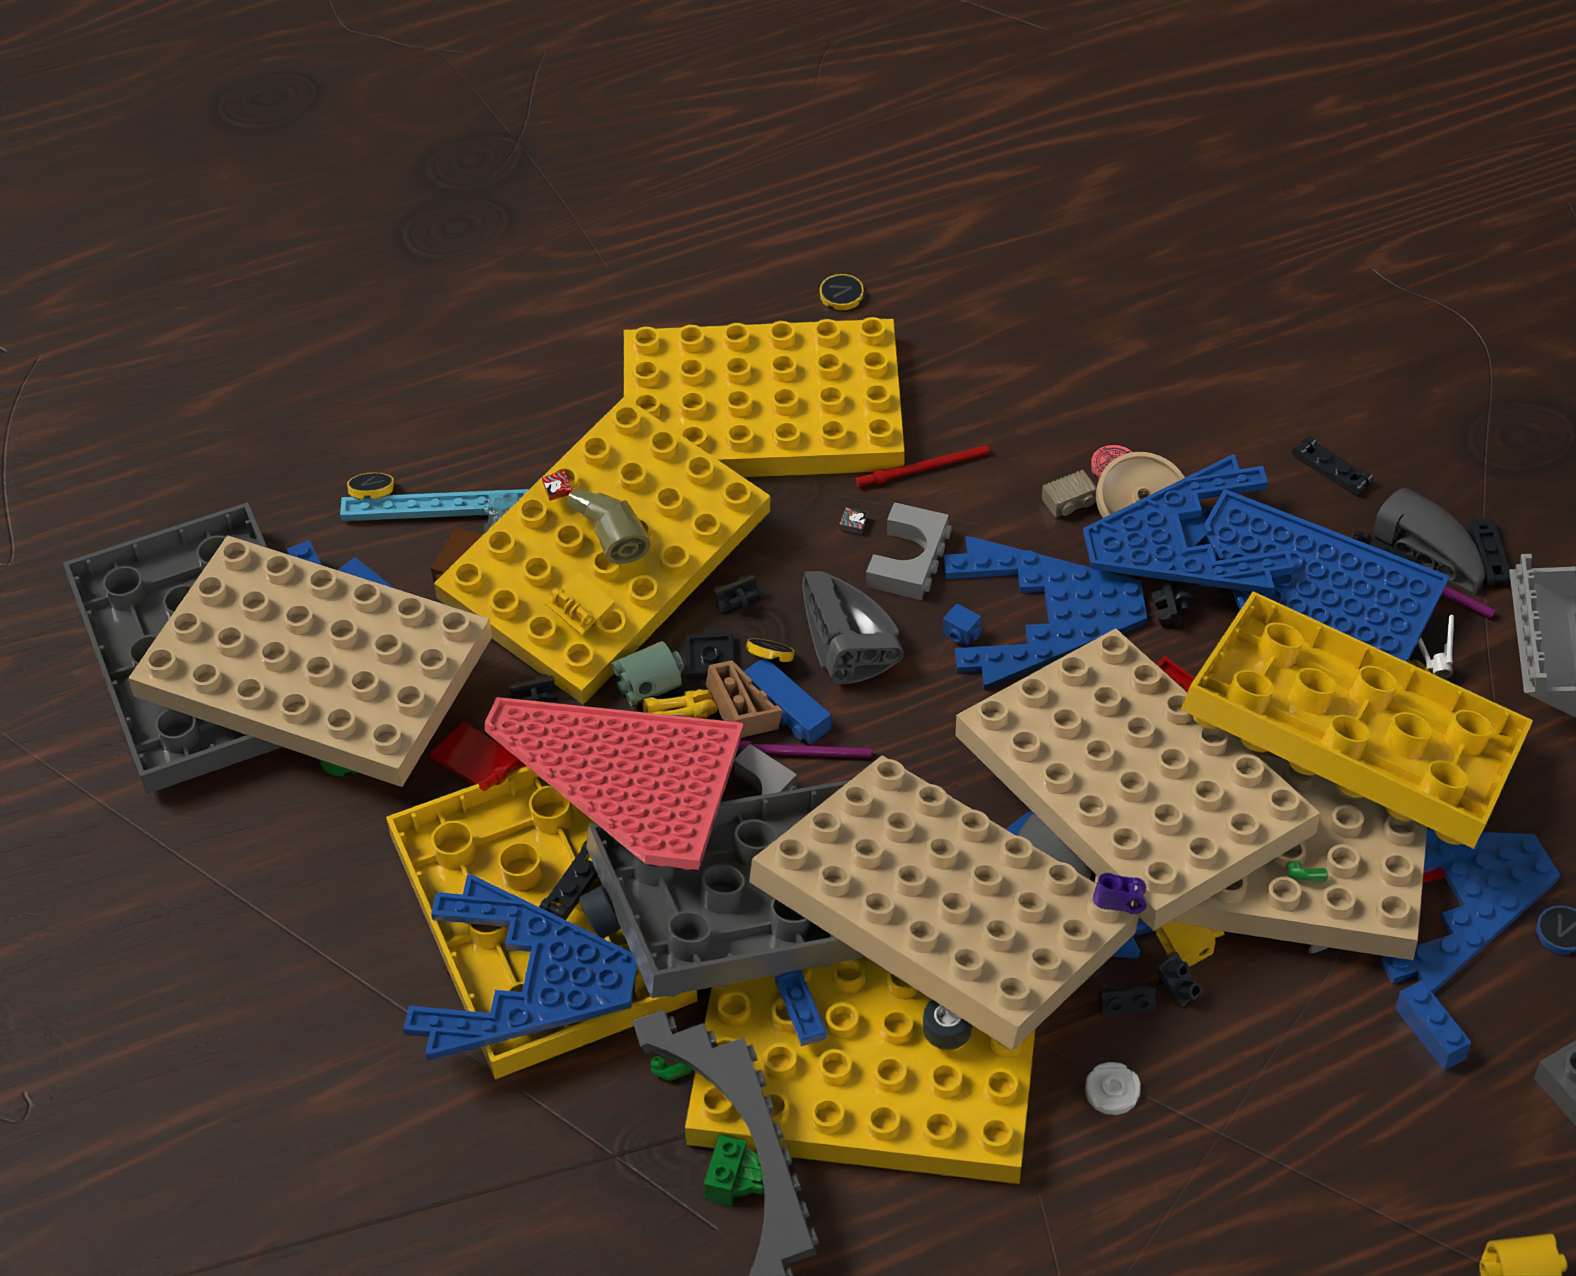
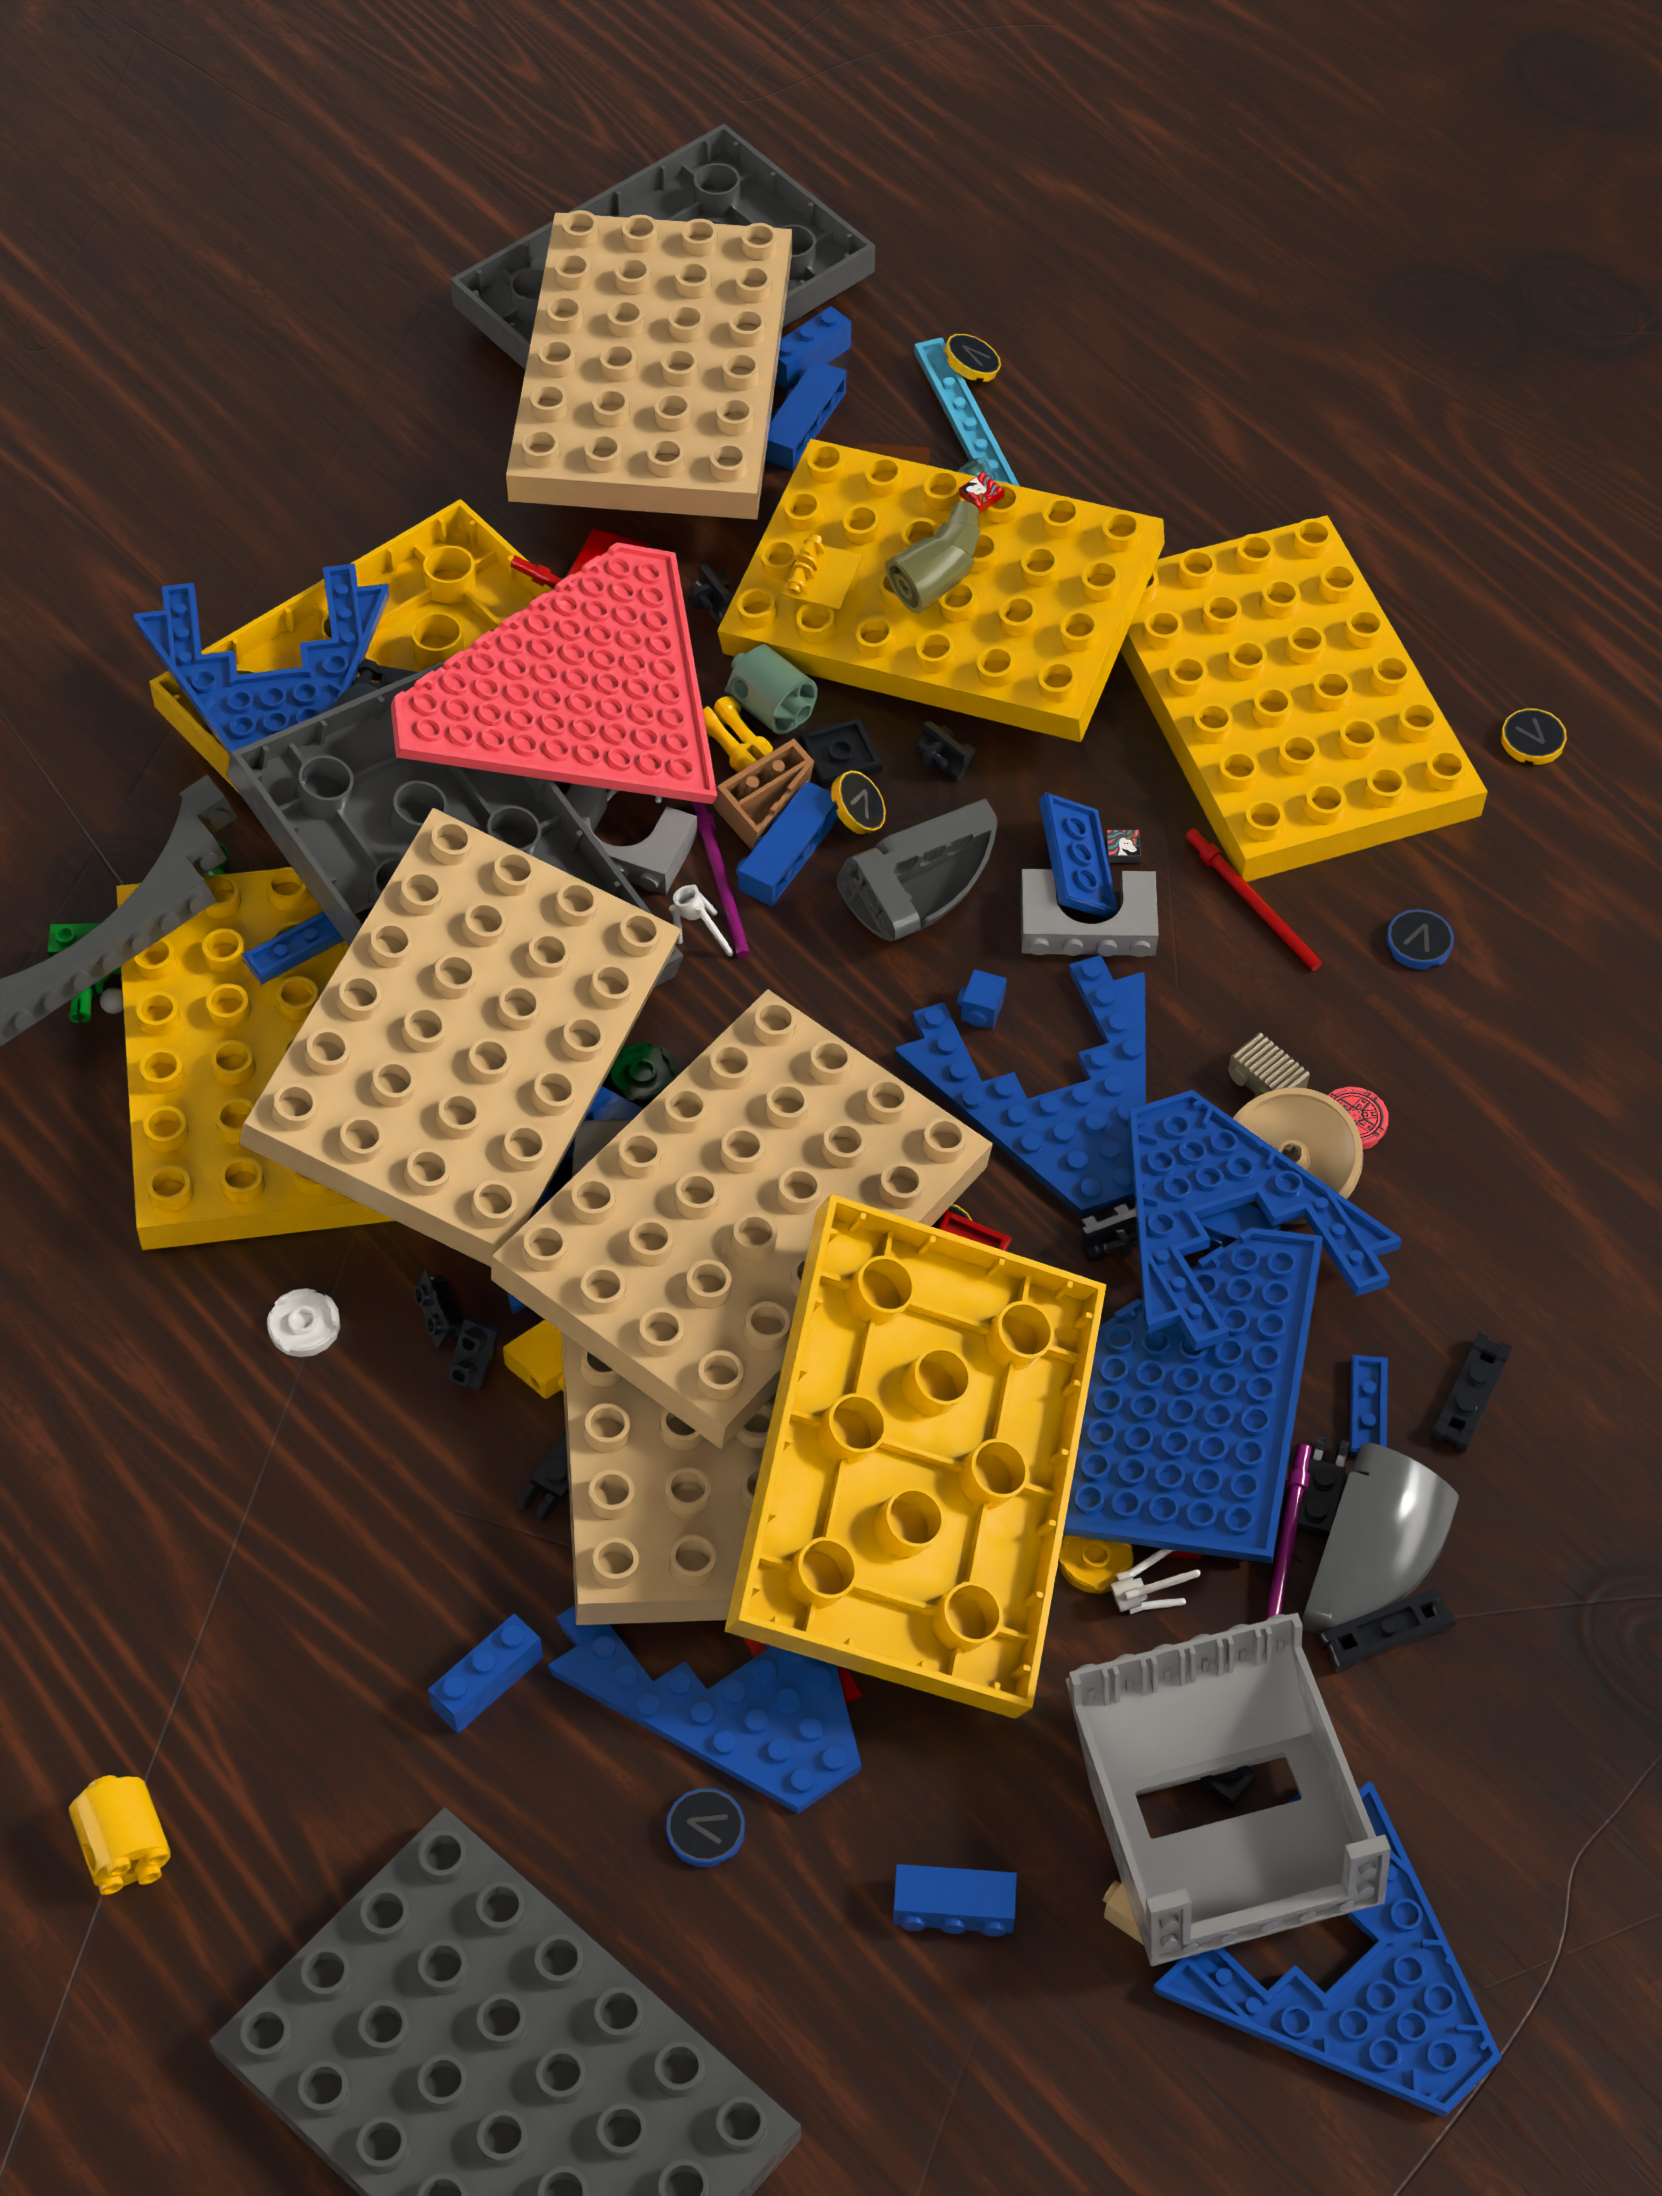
camera: 70 degrees right, 5 degrees up
(839, 760) = (692, 905): none -> white plant
(861, 541) = (1078, 856): none -> blue tile
(984, 393) = (1420, 939): none -> black tile
(1118, 892) = (500, 1211): dark purple piece -> none
(1279, 957) = (550, 1479): none -> black hinge
(1306, 874) = (644, 1448): green arm -> none
(1330, 517) = (1367, 1402): none -> blue tile

